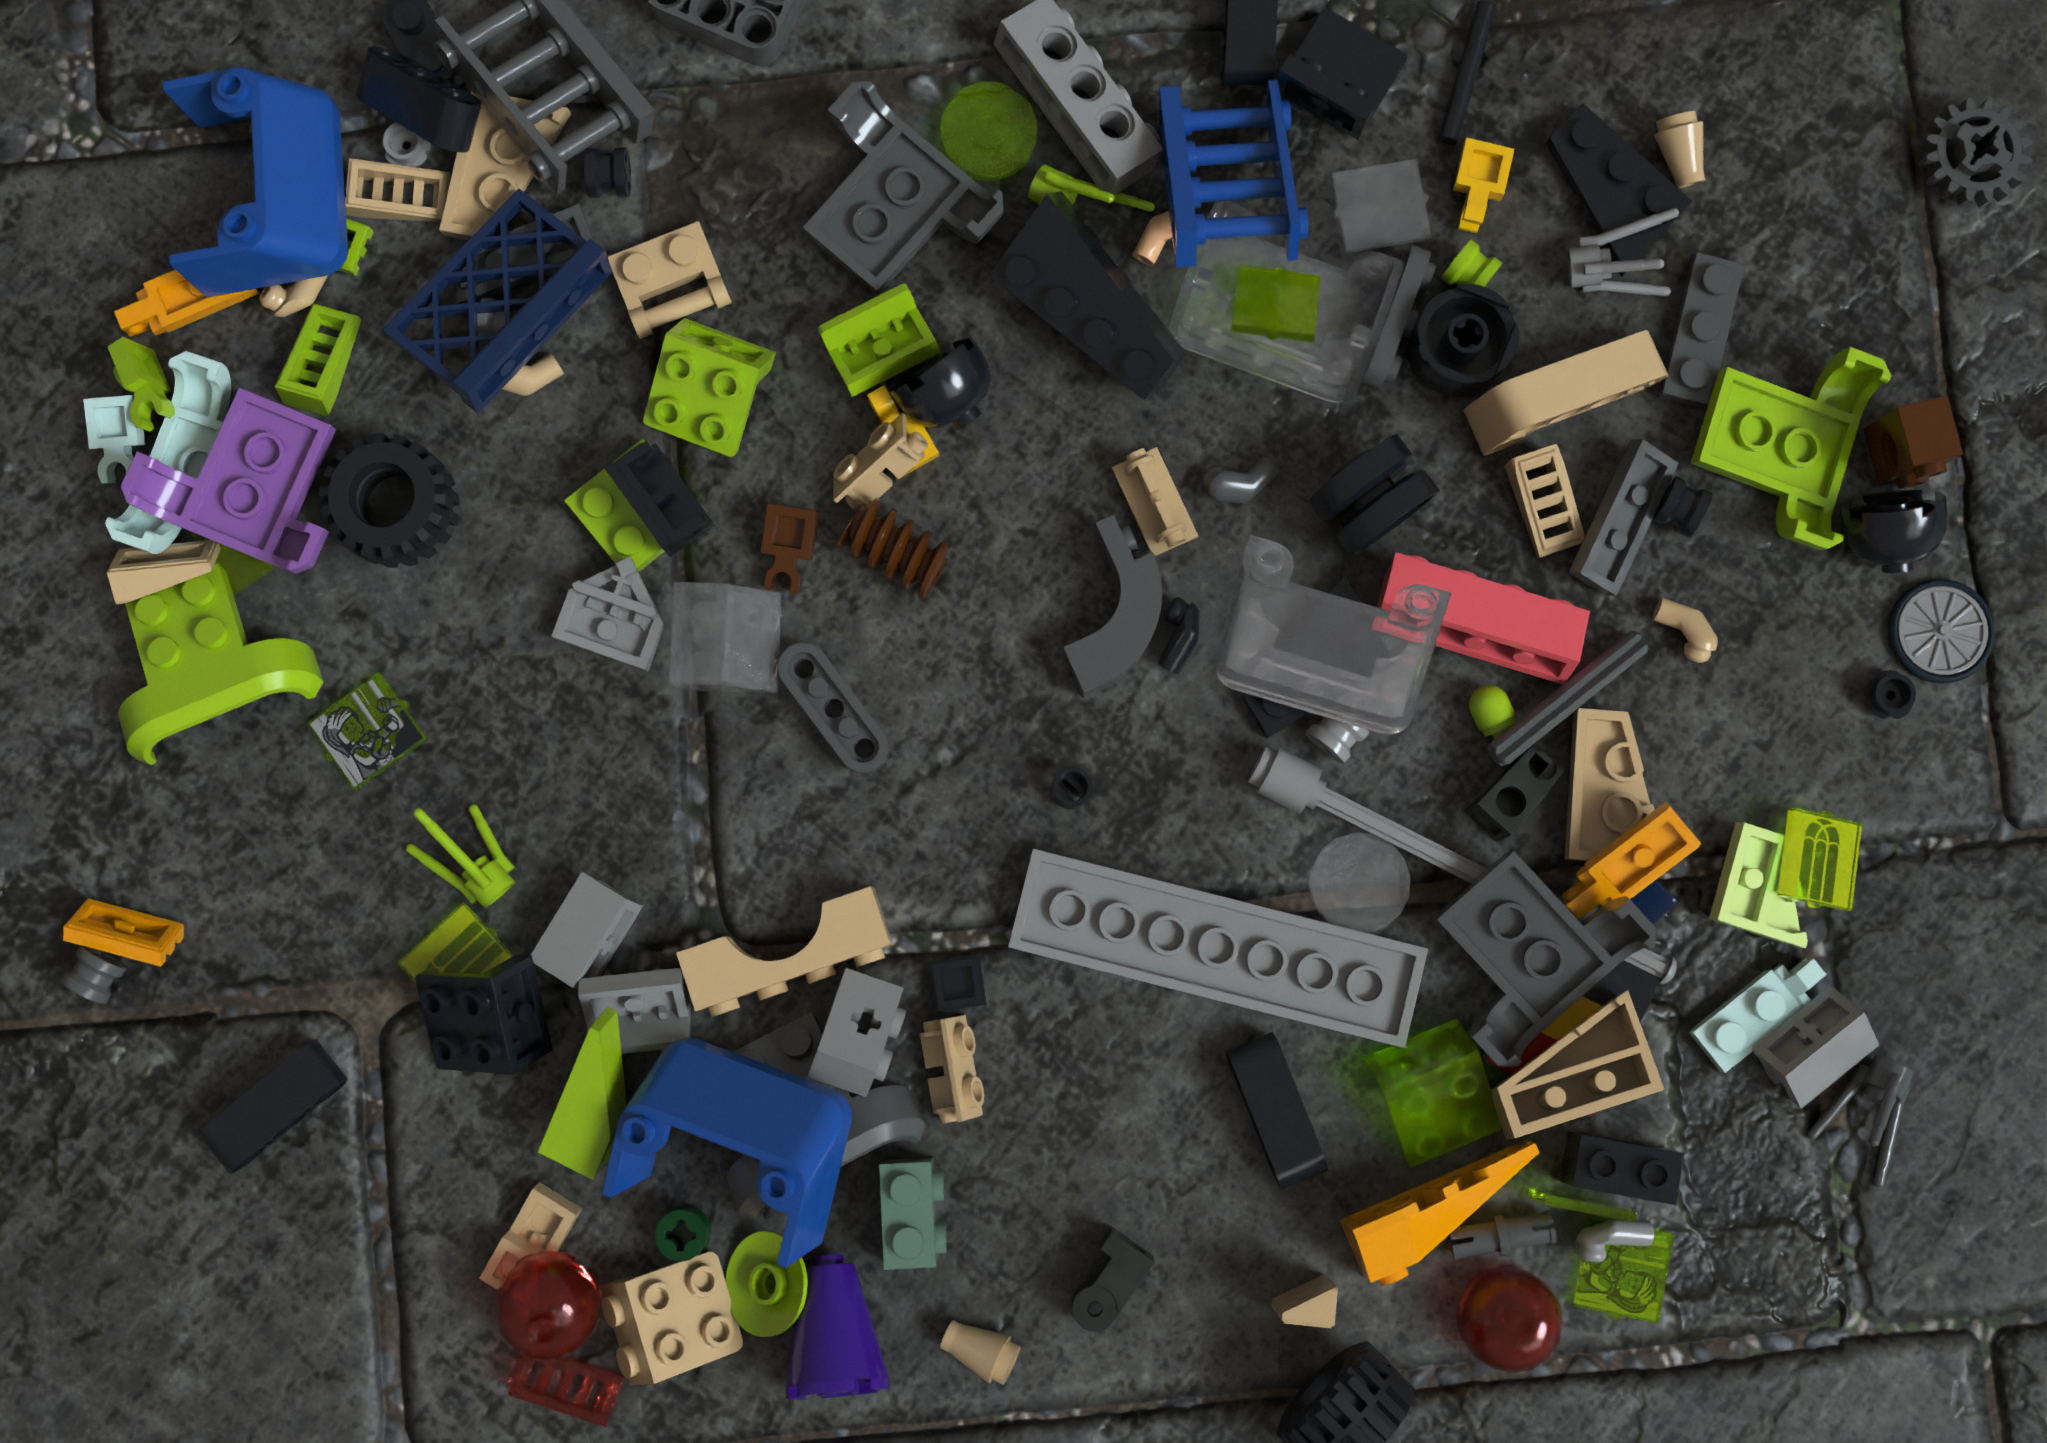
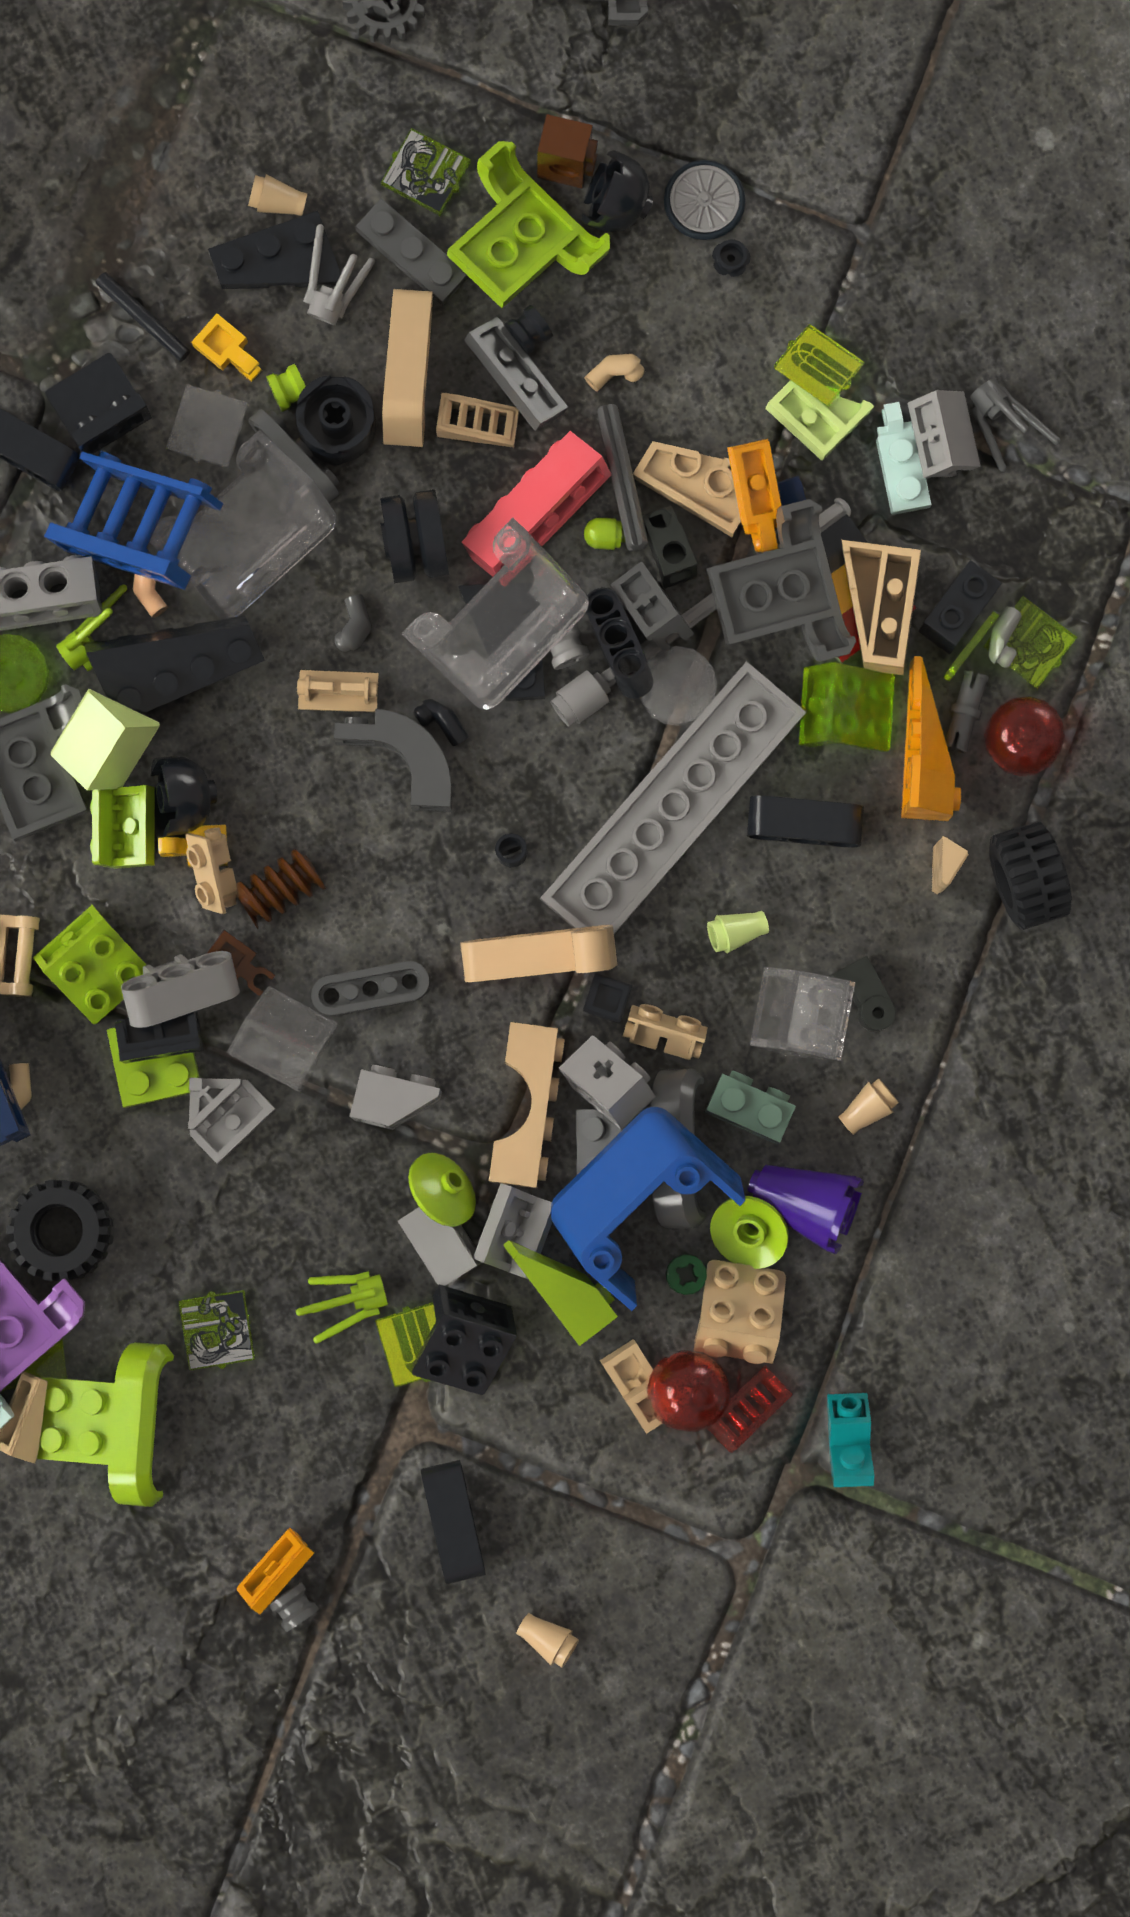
camera: 70 degrees left, 0 degrees up
(191, 1282) = (548, 1639): none -> tan cone
(641, 904) = (442, 1189): none -> lime dish
(711, 790) = (390, 1100): none -> light grey slope
(721, 492) = (179, 988): none -> light grey piece
(958, 268) = (103, 742): none -> yellowish green slope
(992, 922) = (539, 953): none -> tan beam
(1047, 1221) = (802, 1014): none -> clear slope
(1108, 1091) = (735, 930): none -> yellowish green cone
(1276, 303) = (242, 534): clear neon green piece -> none
(1361, 807) = (622, 657): none -> black beam
(1433, 806) = (650, 606): none -> dark grey hinge
(1801, 300) = (425, 172): none -> piece

